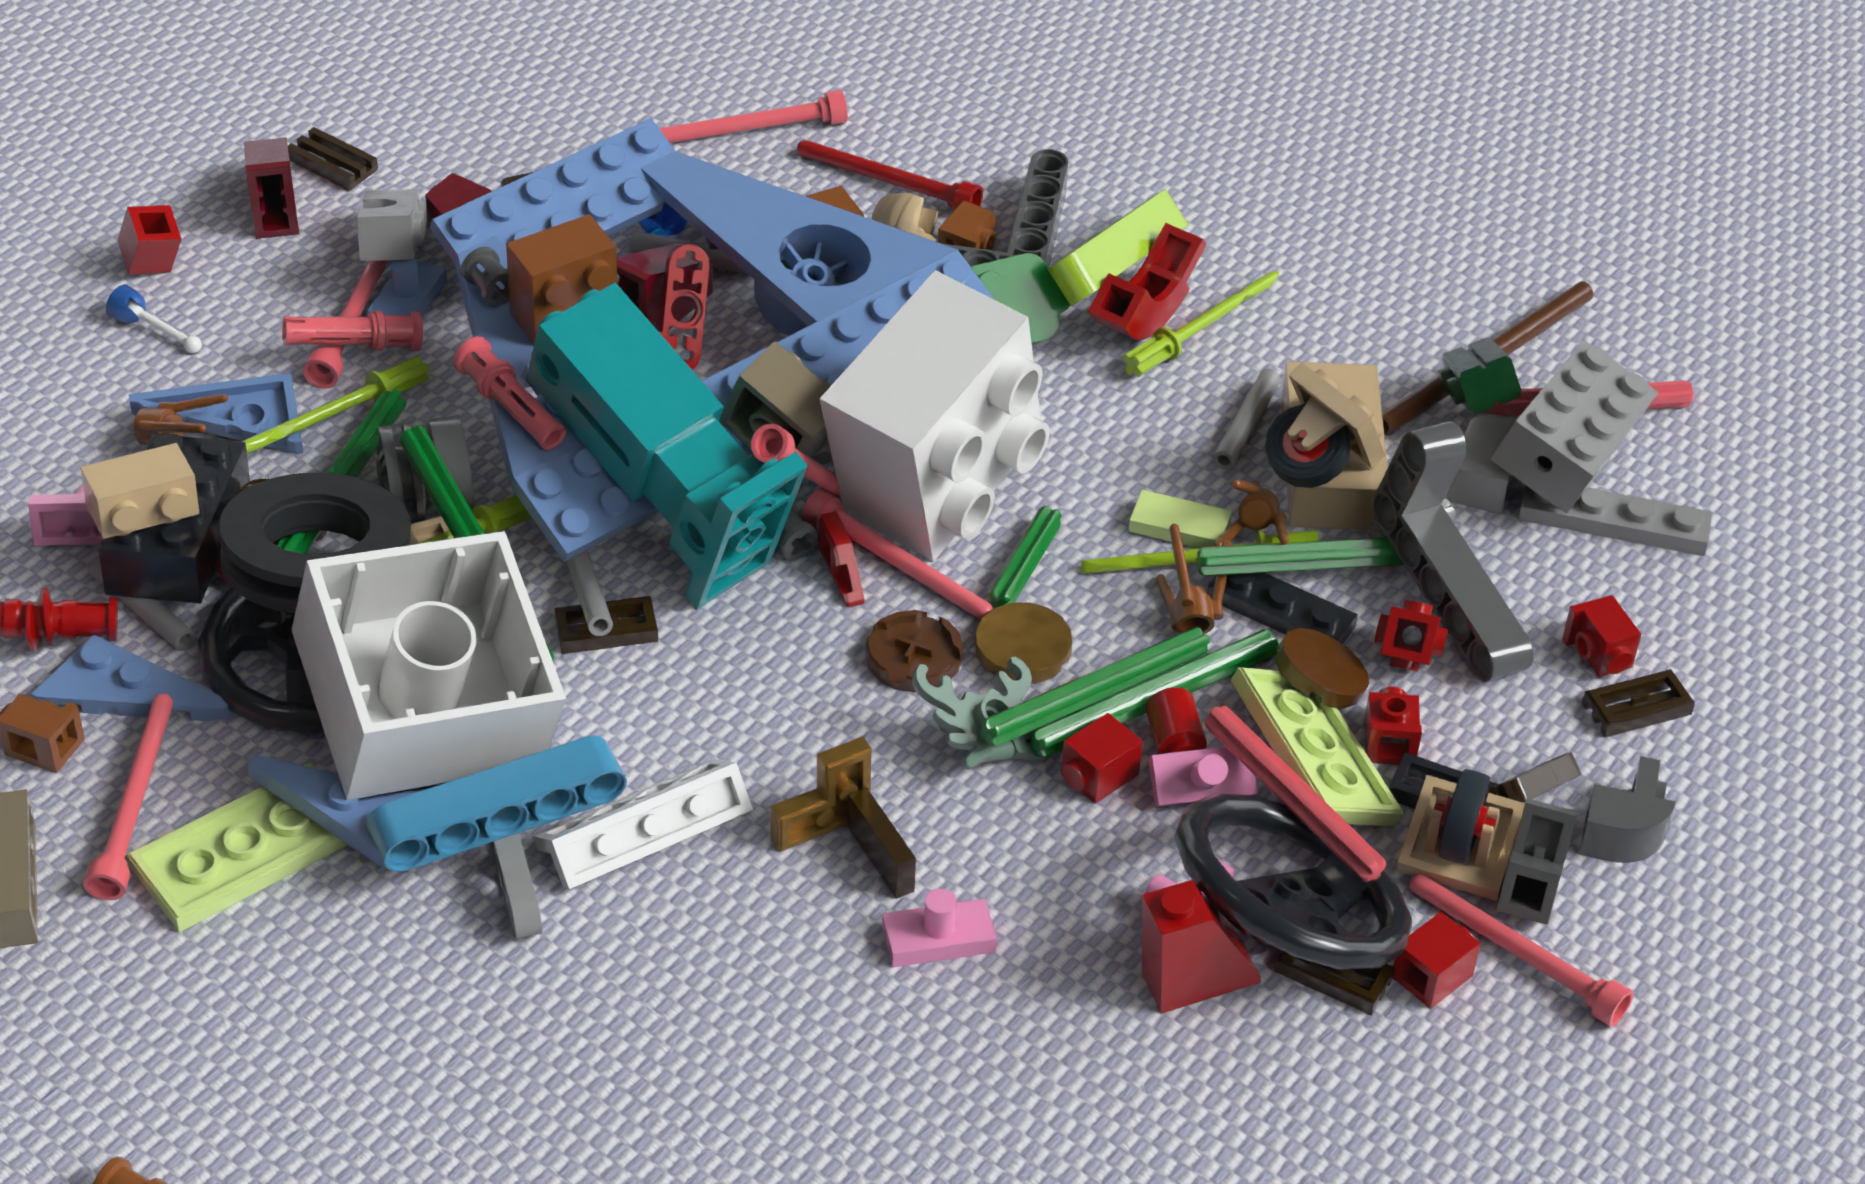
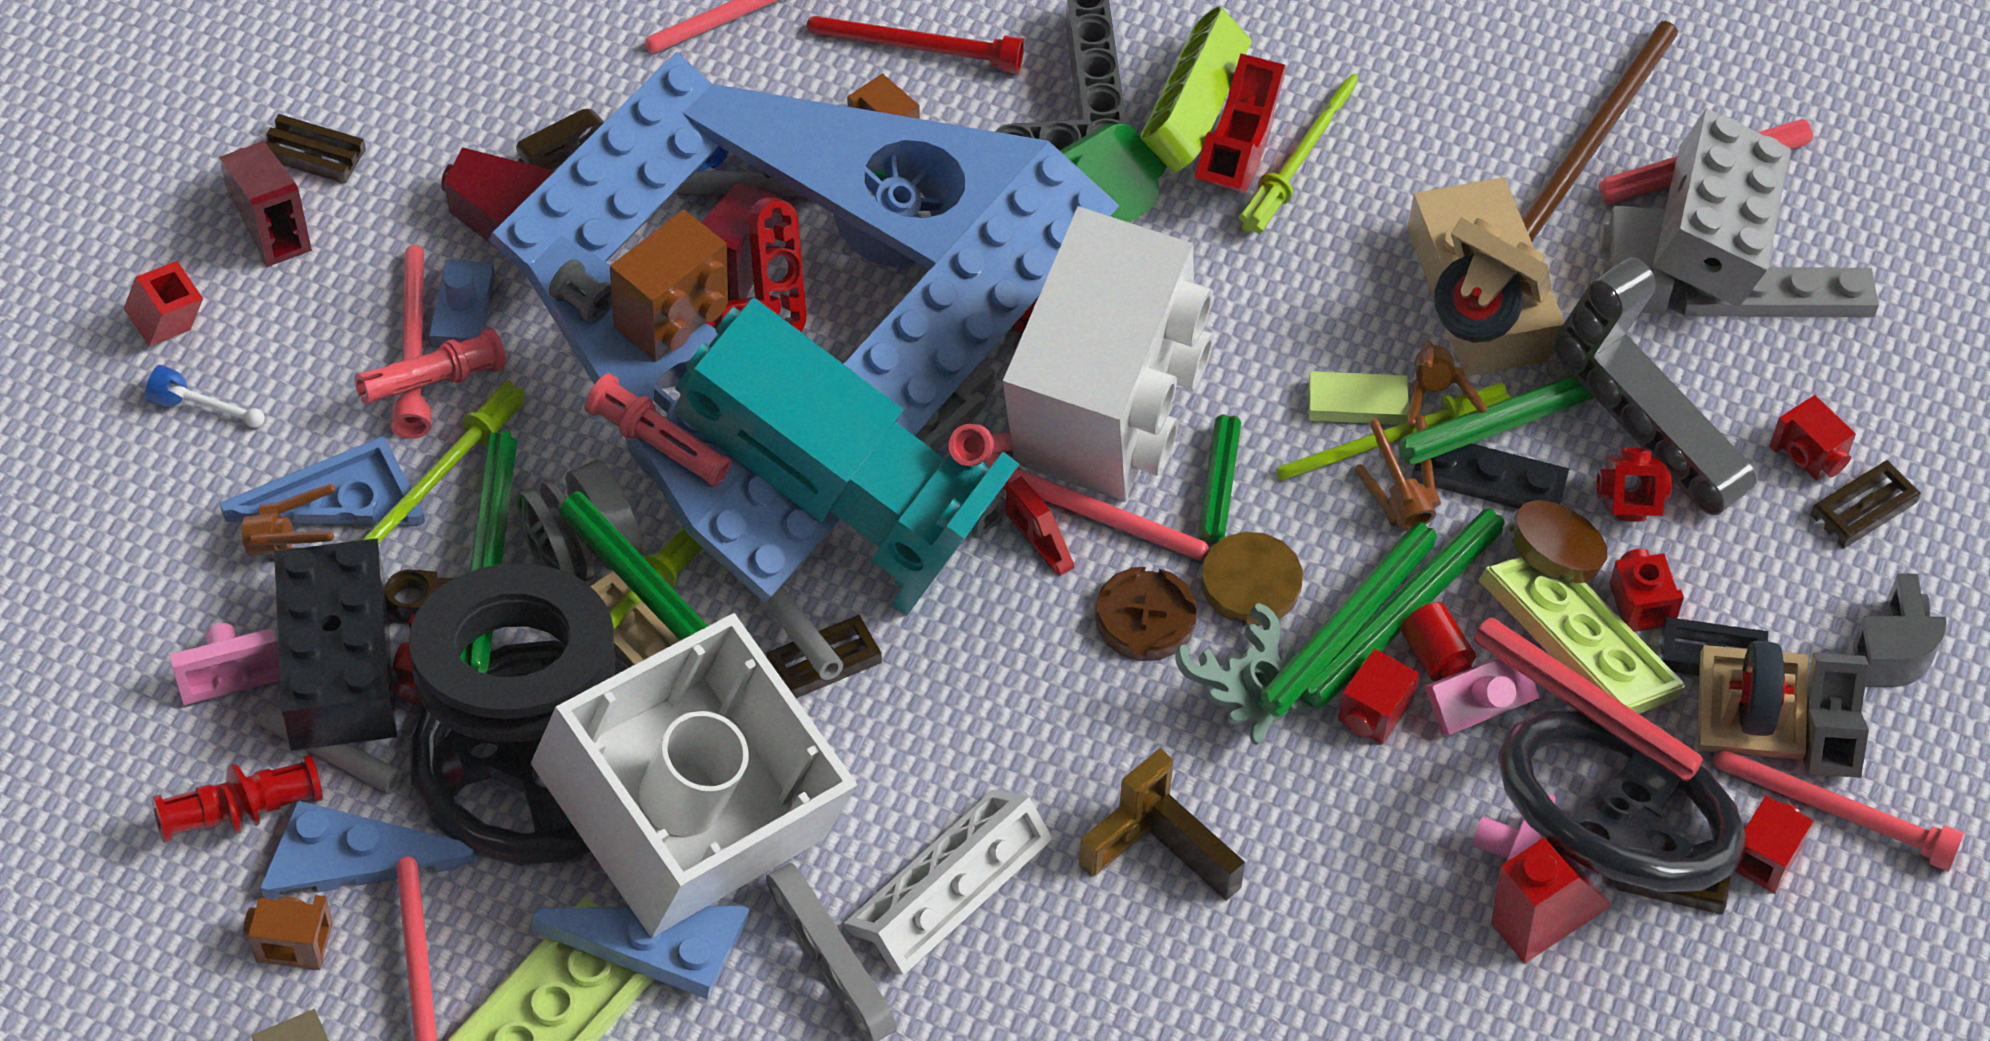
camera: 15 degrees left, 10 degrees up
(140, 490) = (311, 640): tan brick -> none
(391, 225) = (425, 230): light grey arch -> none
(496, 803) = (811, 908): dark azure beam -> none
(778, 392) = (946, 382): dark tan brick -> none
(907, 214) = (962, 103): tan hair -> none
(939, 930) = (1284, 930): bright pink tile -> none
(969, 227) = (1029, 96): dark orange brick -> none
(1246, 419) = (1384, 260): light grey piece -> none
(1479, 376) = (1610, 168): dark green brick -> none
(1539, 779) = (1806, 618): piece -> none

